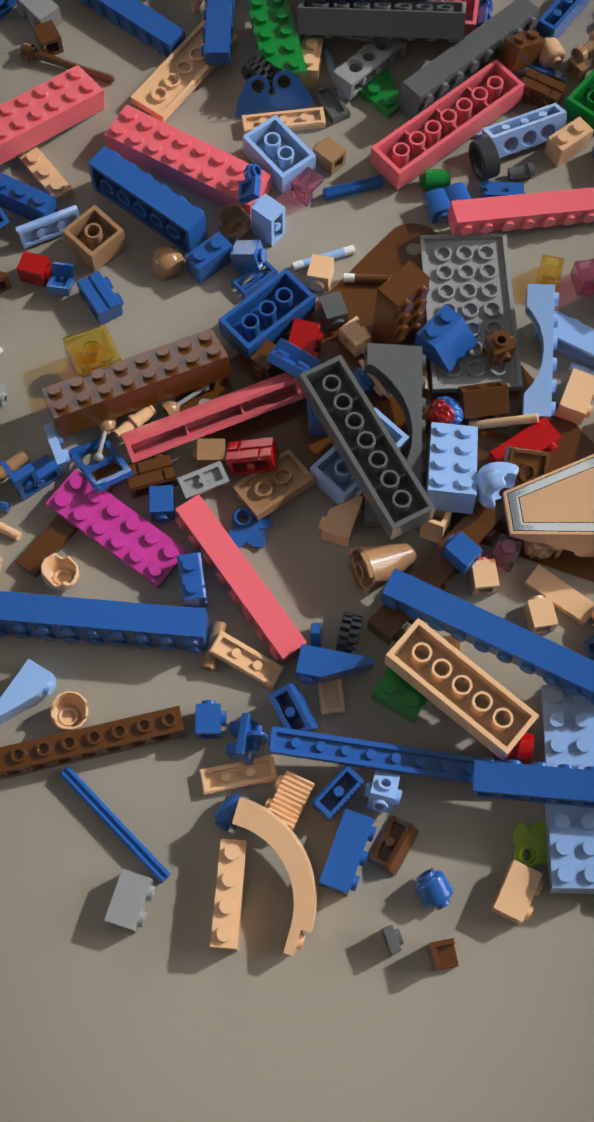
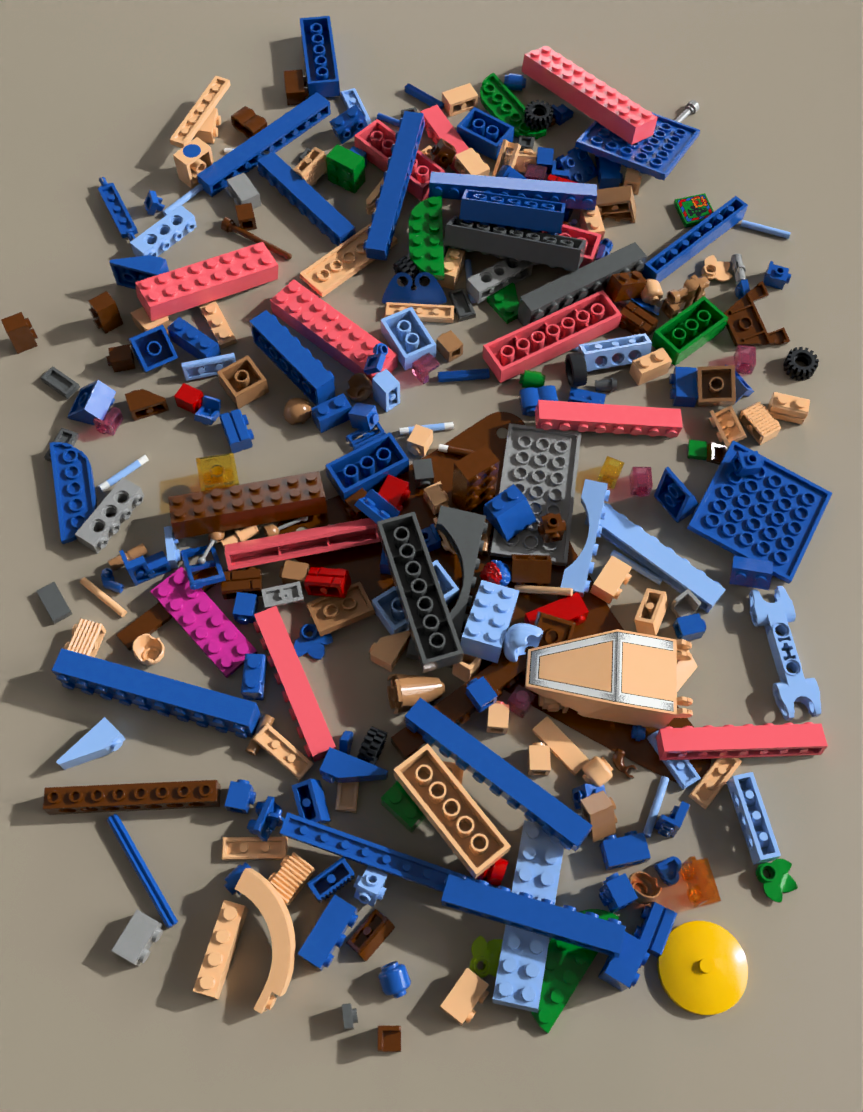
camera: 10 degrees right, 5 degrees down
(69, 711) = (127, 767): light nougat hair -> none

